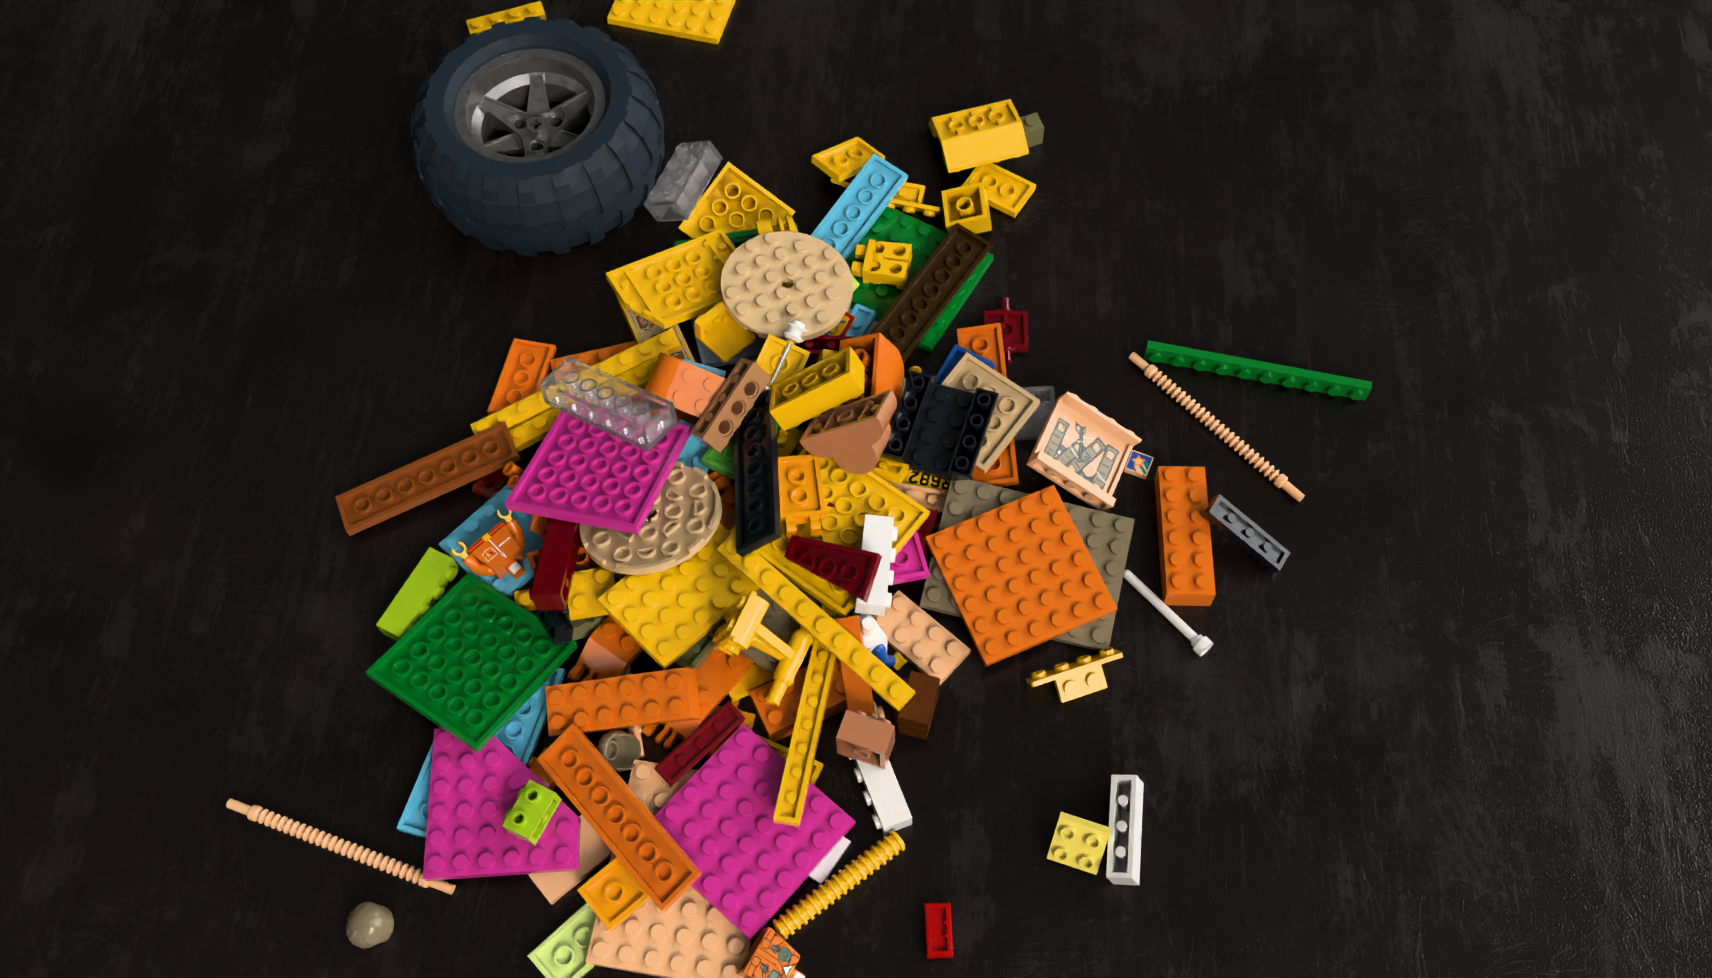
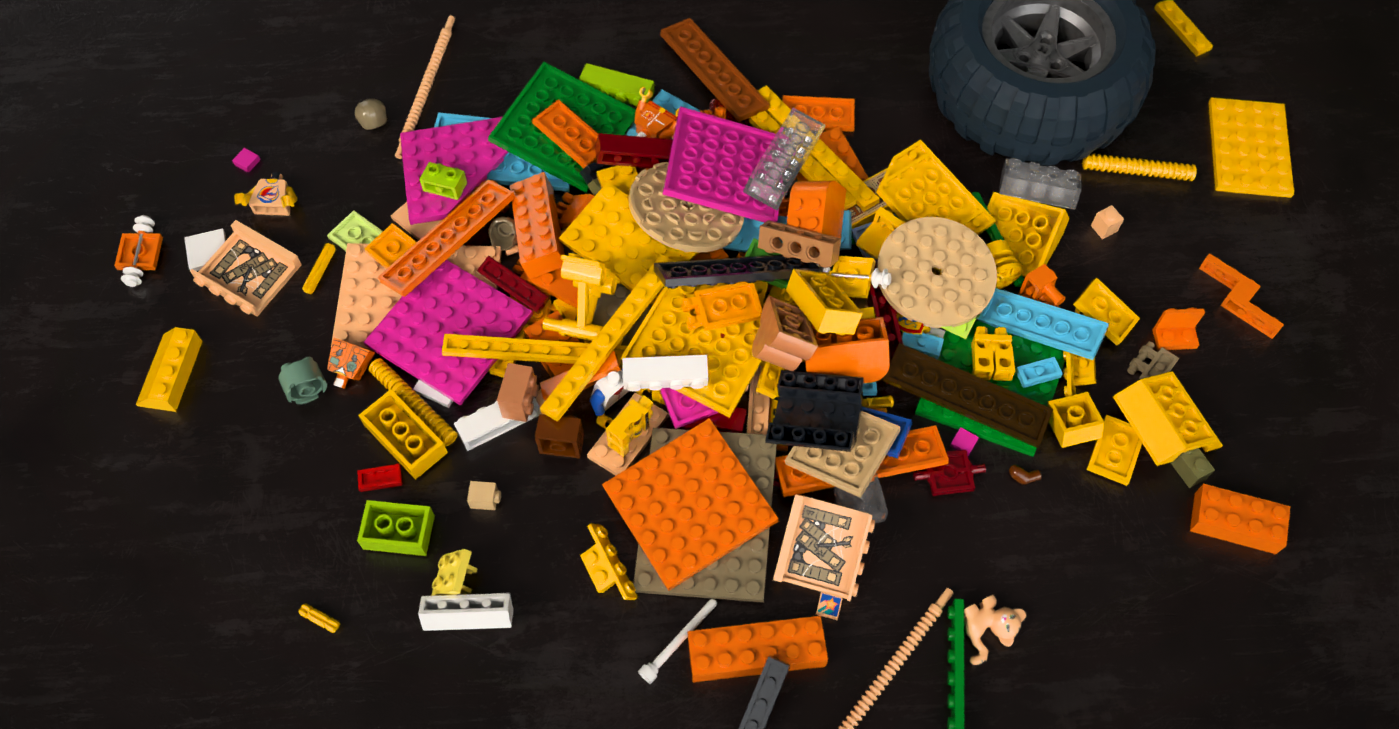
camera: 80 degrees right, 0 degrees up
(491, 649) = (568, 132): none -> orange tile
(680, 90) = (1140, 167): none -> yellow piece
(740, 136) = (1107, 222): none -> light nougat brick
(813, 205) = (1041, 287): none -> orange brick
(840, 565) = (655, 338): dark red wing -> none
(847, 52) = (1242, 292): none -> orange bracket
(879, 110) = (1177, 329): none -> orange bracket
(887, 894) = (403, 434): none -> yellow brick
(910, 227) = (1038, 372): none -> medium azure plate
(915, 134) = (1161, 361): none -> dark tan plate
(920, 623) = (629, 425): none -> yellow hips
(970, 313) = (964, 441): none -> dark pink tile
(978, 803) = (483, 495): none -> tan brick
(1013, 907) = (396, 528): none -> lime brick
(1015, 270) = (1023, 476): none -> reddish brown arm
(1081, 110) = (1240, 519): none -> orange brick
(1167, 317) = (1003, 623): none -> light nougat animal

